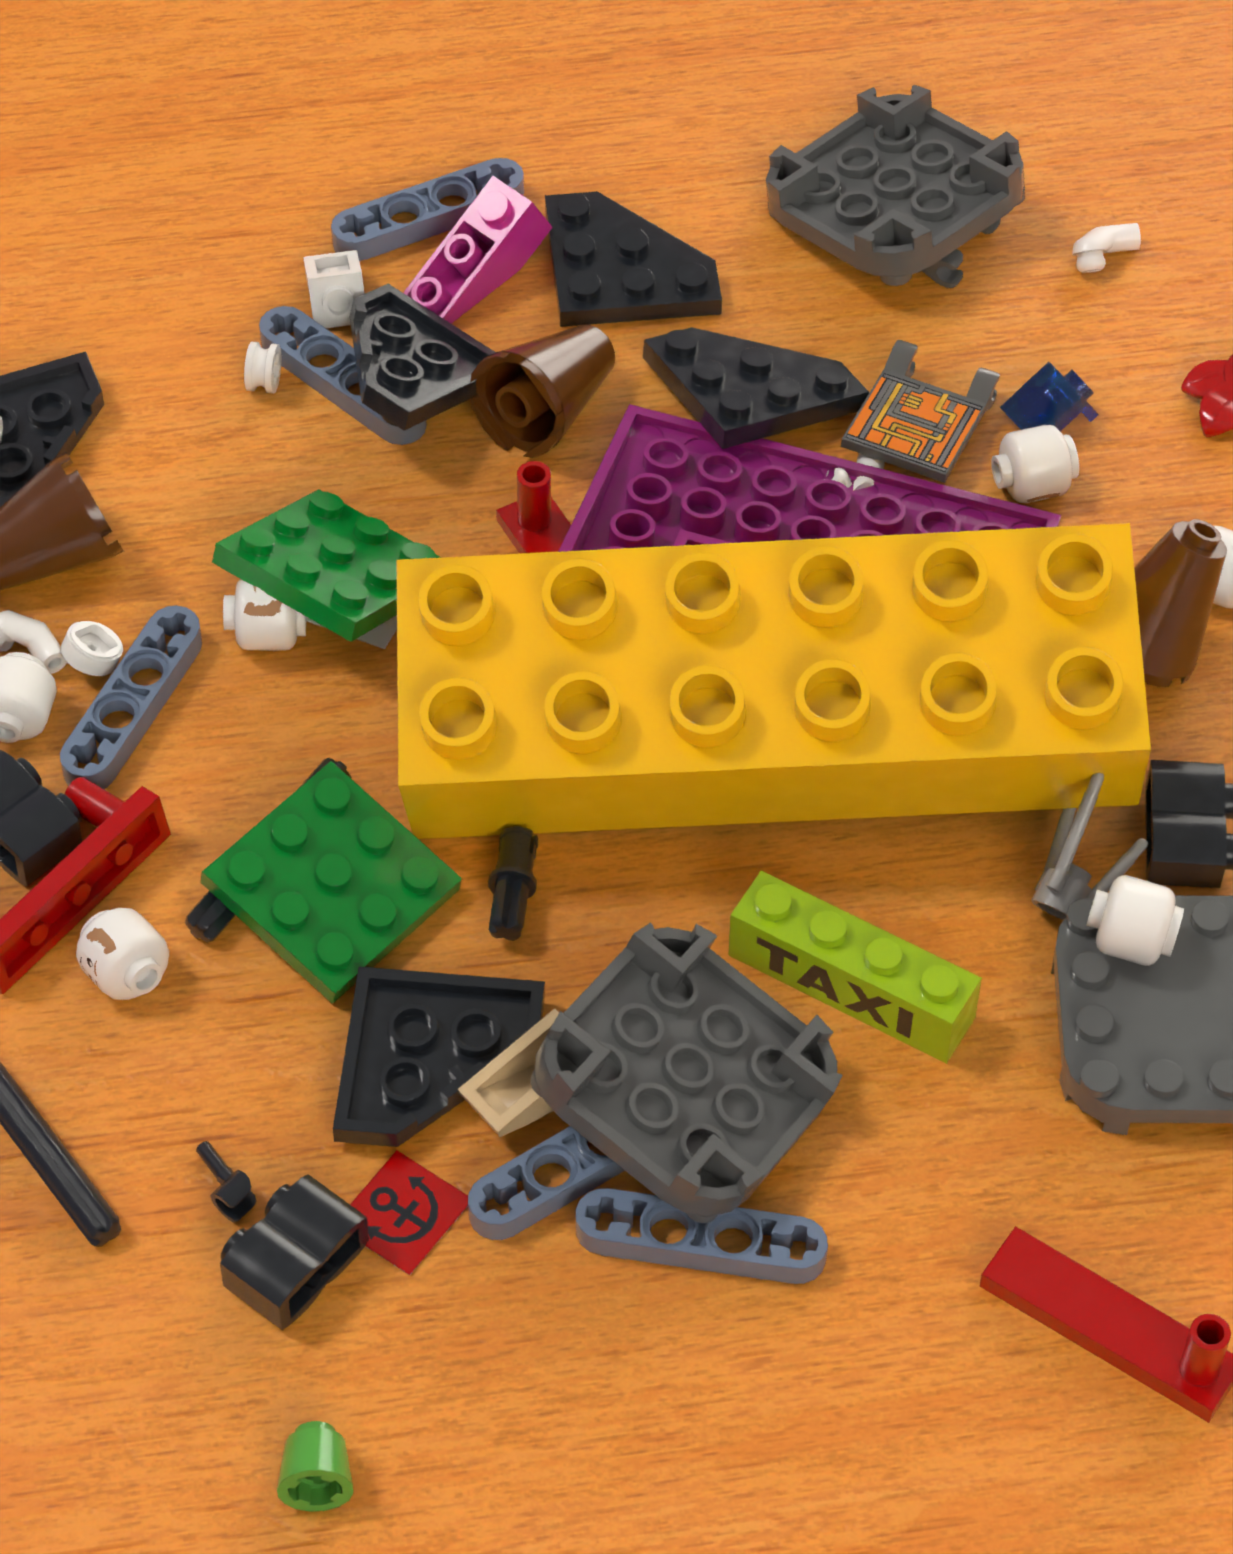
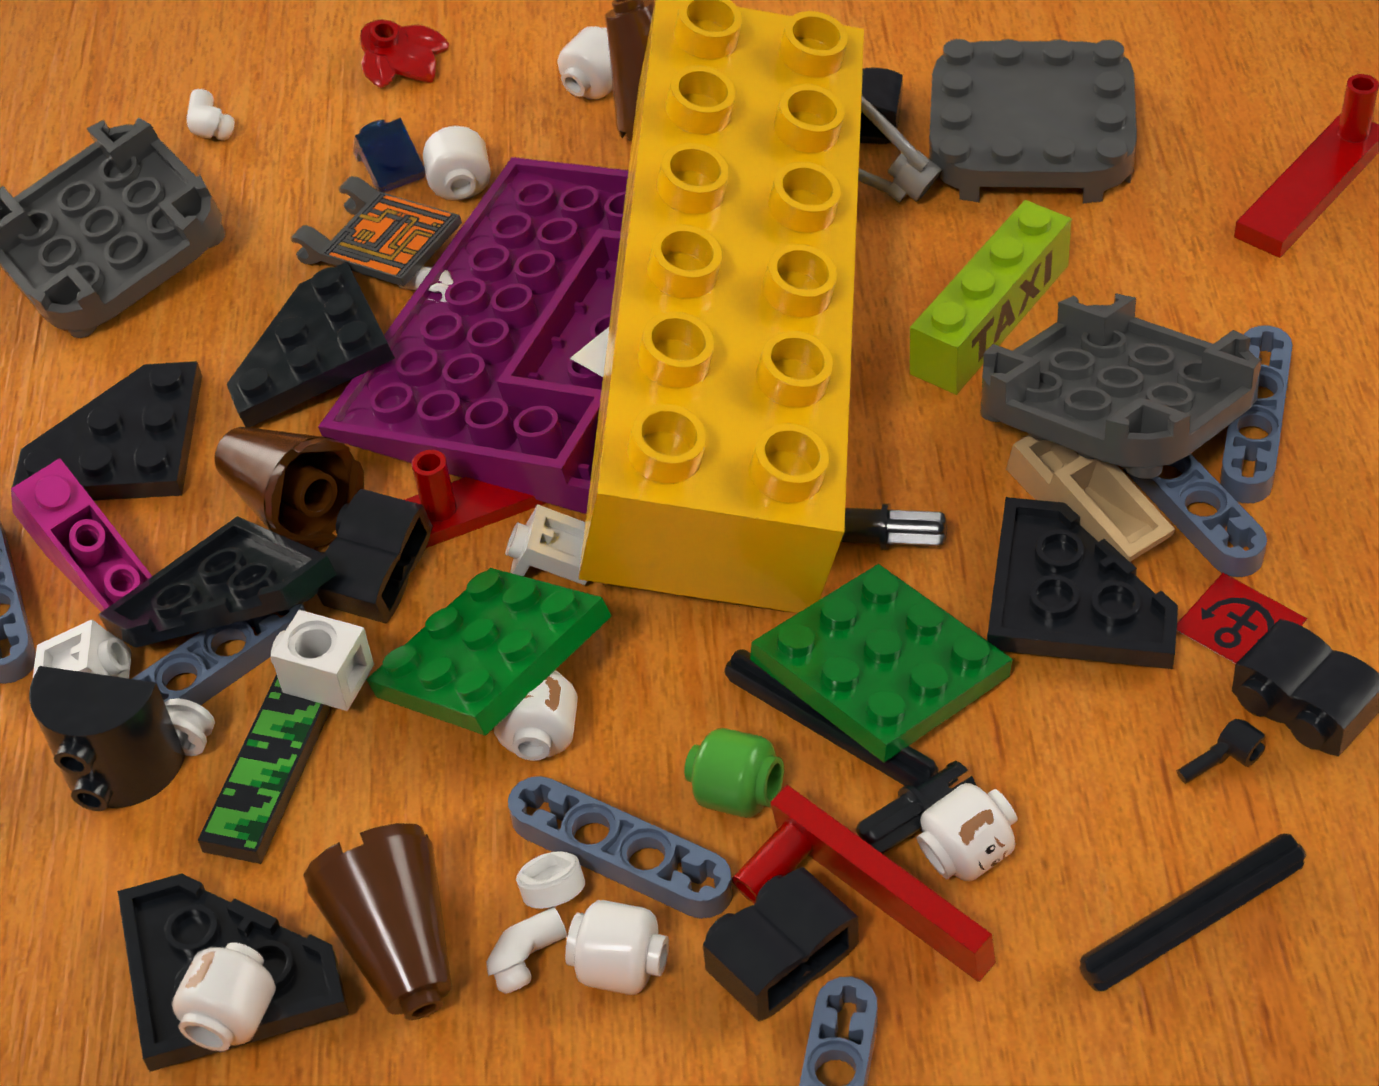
camera: 80 degrees left, 5 degrees down
(137, 892) = (903, 815): none -> black axle
(194, 768) = (734, 772): none -> bright green head
(226, 297) = (106, 736): none -> black brick
(246, 440) = (263, 776): none -> tile
(316, 442) = (322, 659): none -> white brick
(457, 468) = (374, 554): none -> black brick
(1135, 920) = (982, 99): white head -> none

